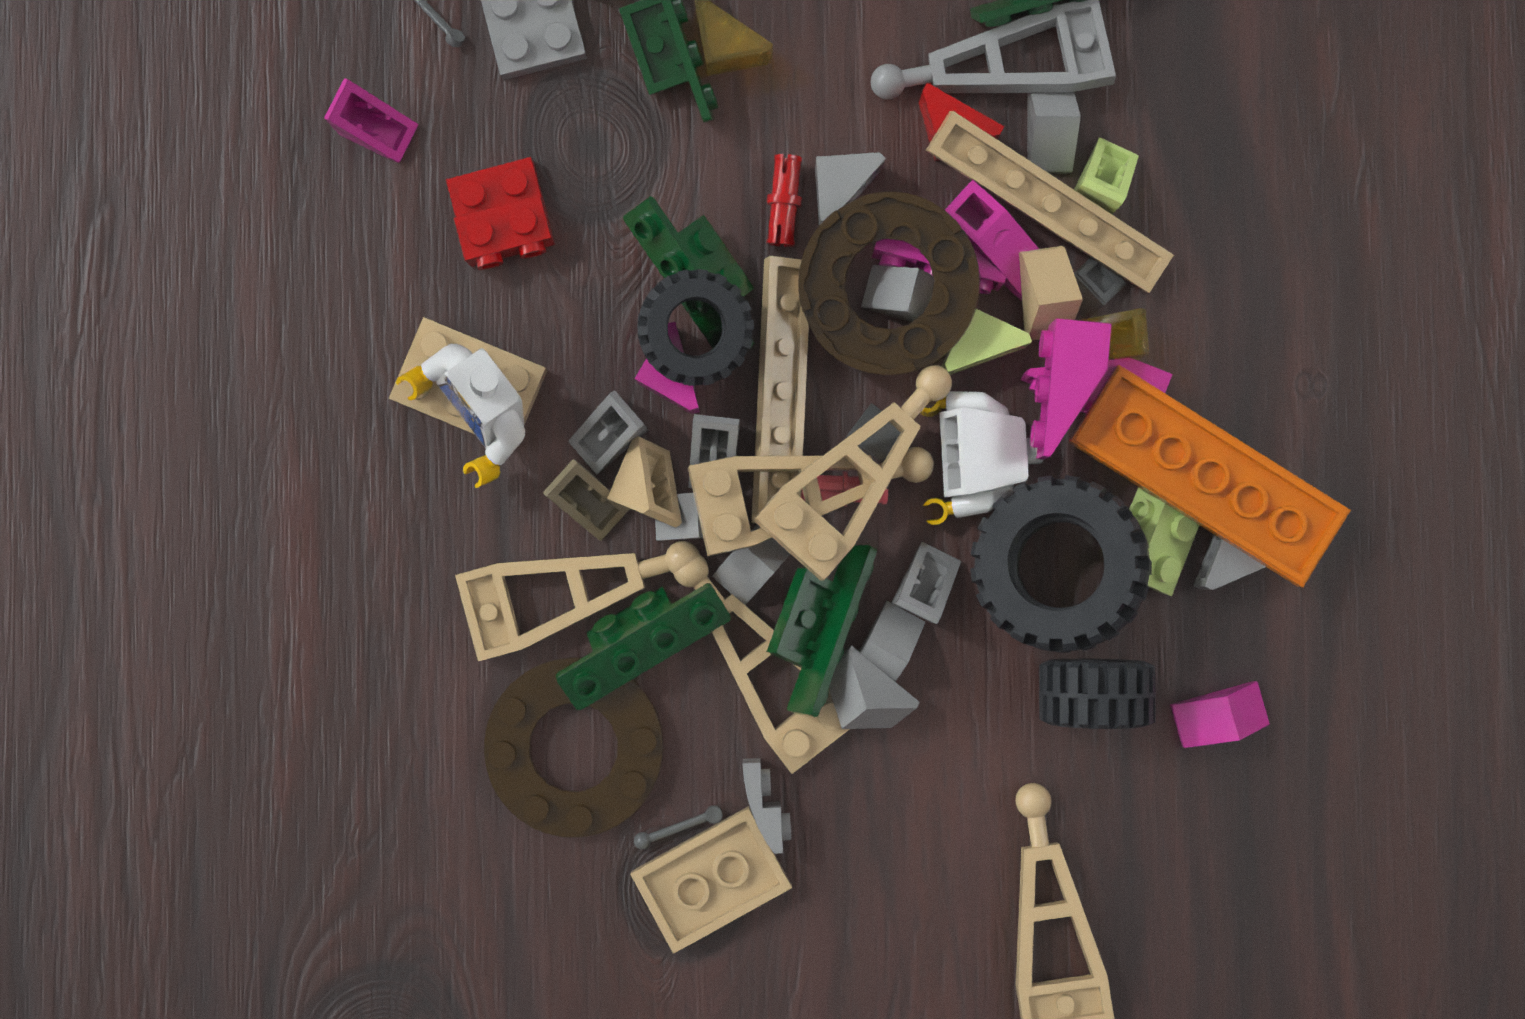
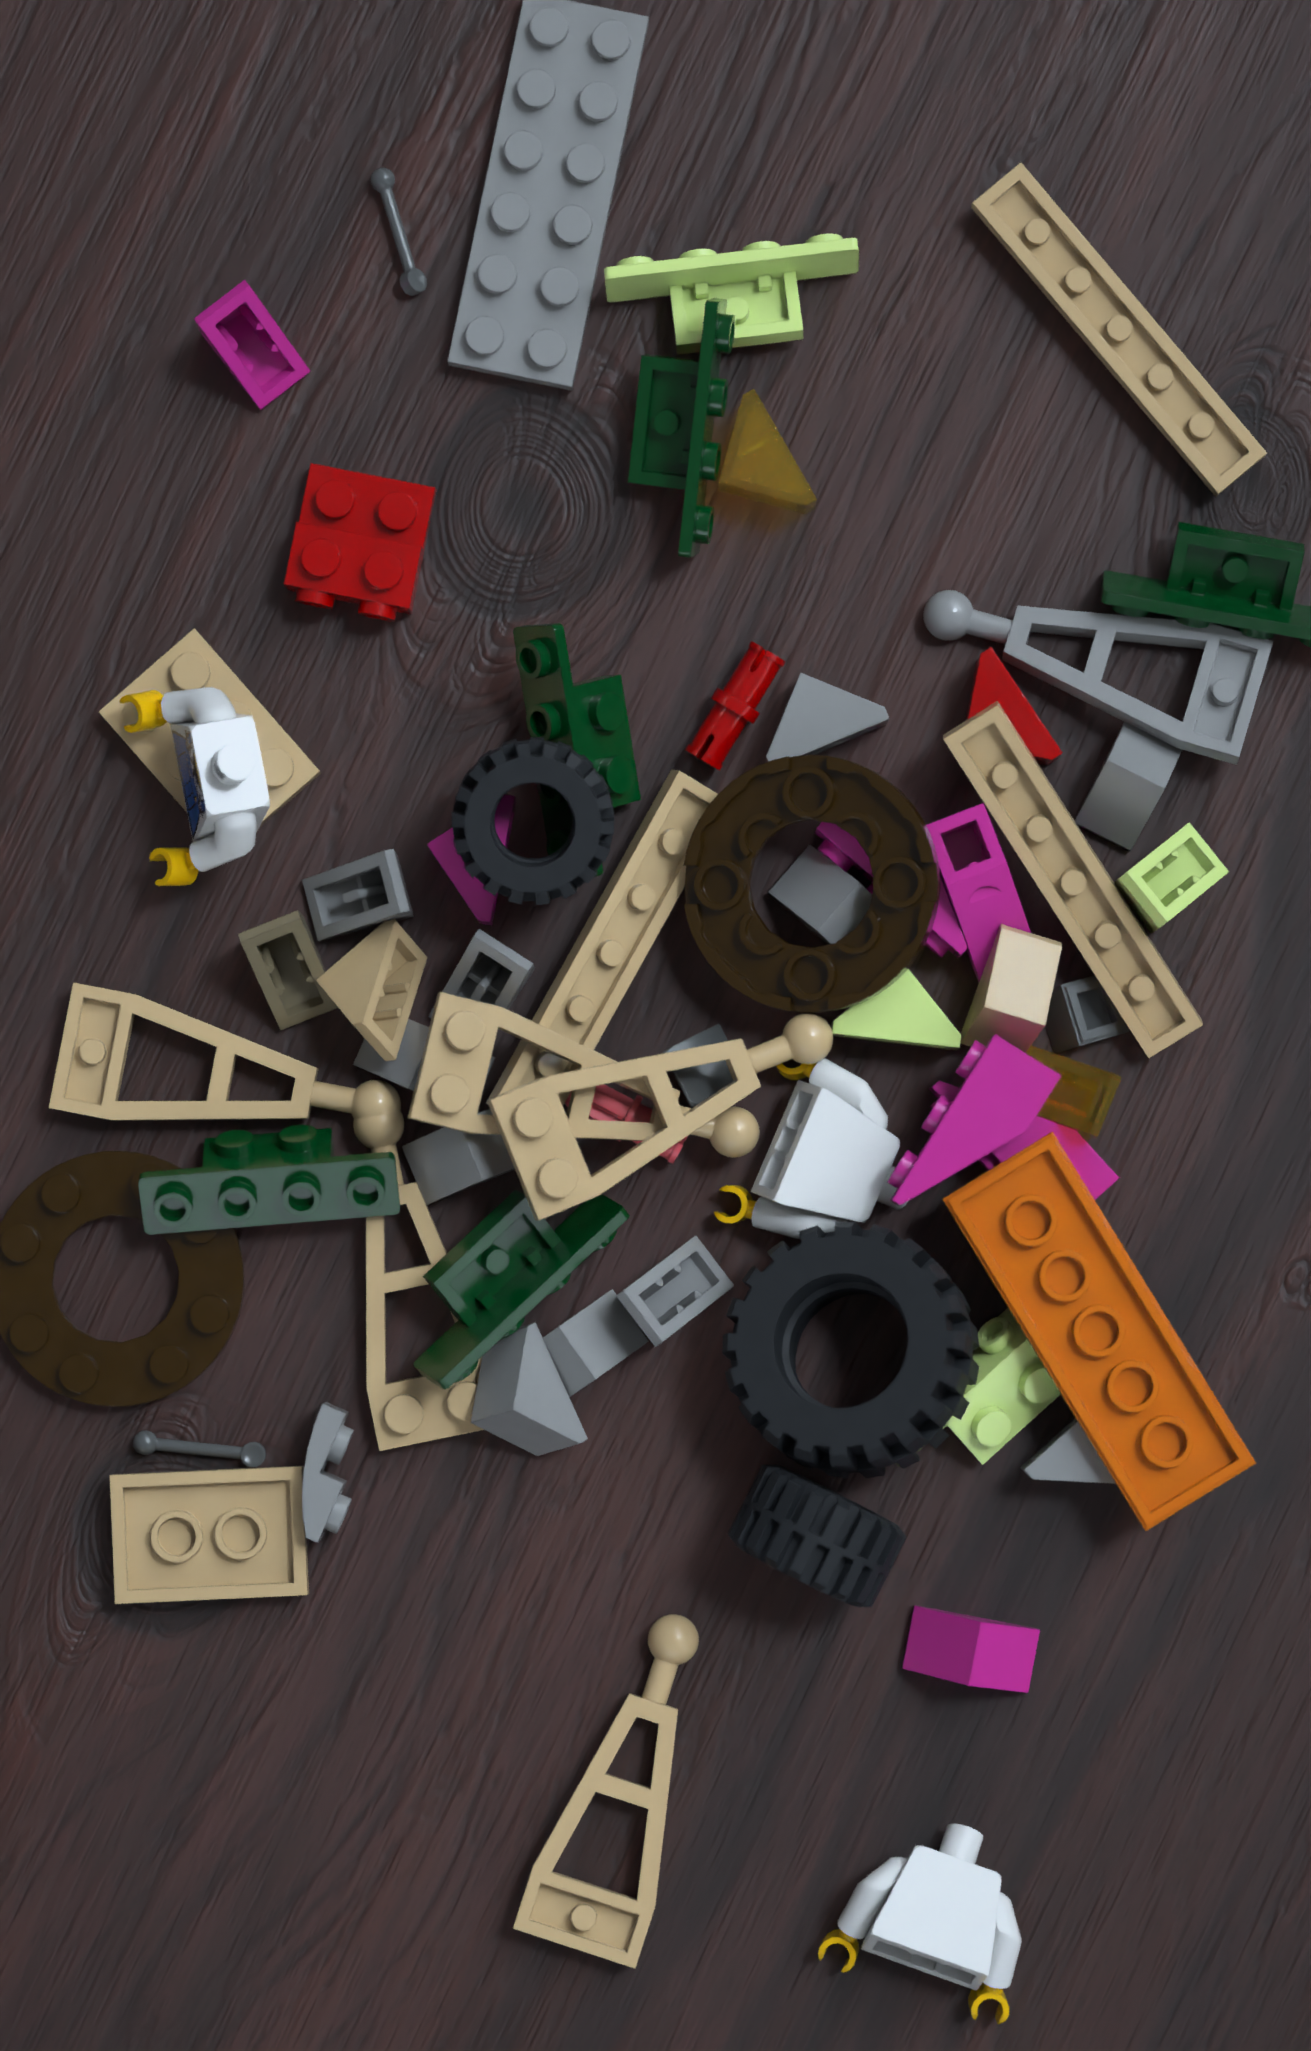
camera: 30 degrees right, 0 degrees up
(1287, 895) = (937, 1918): none -> white torso

